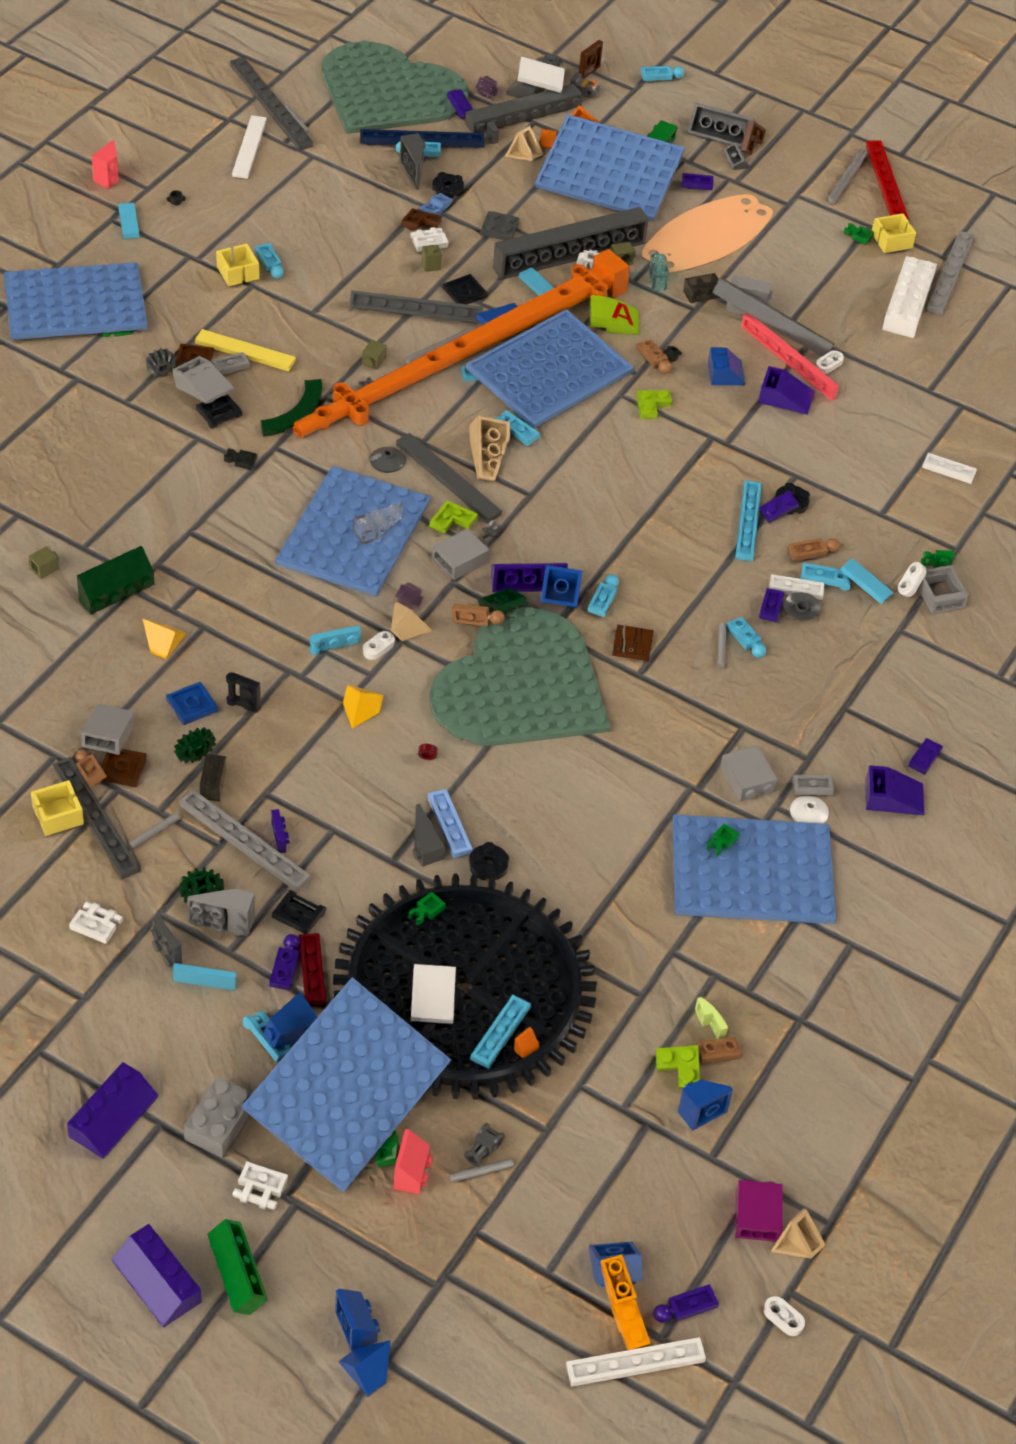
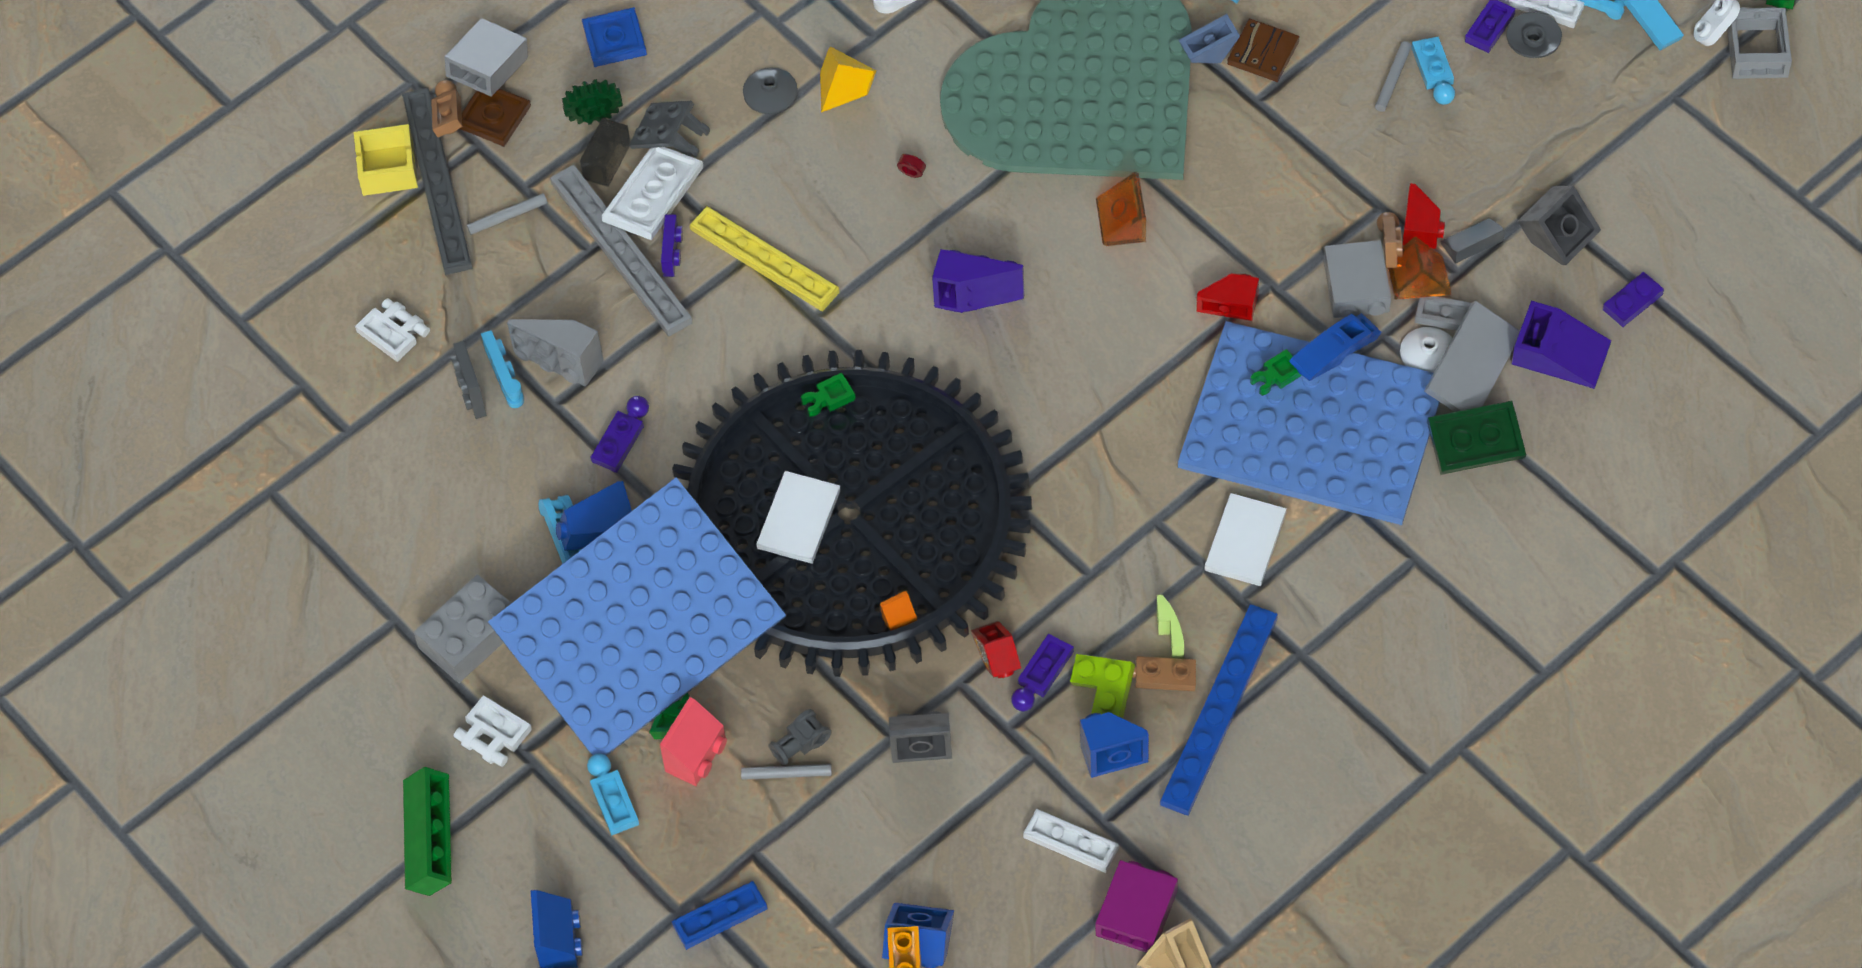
camera: 25 degrees right, 10 degrees up
(112, 1110) = (335, 591): dark purple slope -> none
(157, 1276) = (325, 821): dark purple slope -> none
(186, 935) = (503, 370): none -> medium azure plate
(200, 883) = (543, 302): dark green gear -> none
(204, 976) = (508, 432): medium azure tile -> none
(248, 754) = (662, 124): none -> dark grey plate
(249, 692) = (688, 35): black plate -> none
(254, 797) = (652, 191): none -> white tile
(296, 916) = (655, 371): black plate -> none
(312, 720) = (770, 99): none -> dark grey dish
(312, 969) = (654, 449): dark red tile -> none
(346, 829) = (764, 258): none -> light yellow tile
(362, 1213) = (611, 795): none -> medium azure plate
(427, 843) = (863, 295): dark grey slope -> none
(449, 823) = (906, 276): light blue plate -> none
(468, 1281) = (719, 915): none -> blue tile
(491, 852) = (943, 328): black plate -> none
(500, 817) = (975, 282): none -> dark purple slope
(500, 1031) = (871, 587): medium azure tile -> none
(570, 1126) = (920, 737): none -> flat silver slope
(581, 757) = (1122, 213): none -> clear orange slope
(600, 641) = (1211, 41): none -> sand blue slope
(600, 1056) = (997, 649): none -> red slope
(634, 1066) = (1041, 672): none -> dark purple plate
(671, 799) = (1230, 297): none -> red slope
(695, 1176) = (1071, 840): none -> white tile
(737, 952) = (1245, 539): none -> white tile
(753, 816) = (1334, 345): none -> blue slope
(762, 1068) = (1219, 710): none -> blue plate
(765, 745) = (1389, 225): none -> medium nougat plate
(775, 729) = (1422, 218): none -> red slope
(786, 761) = (1419, 272): none -> clear orange slope
(811, 736) = (1473, 240): none -> dark grey slope
(842, 811) = (1473, 359): none -> light grey tile
(863, 717) = (1560, 224): none -> flat silver slope
(863, 858) = (1476, 437): none -> dark green plate

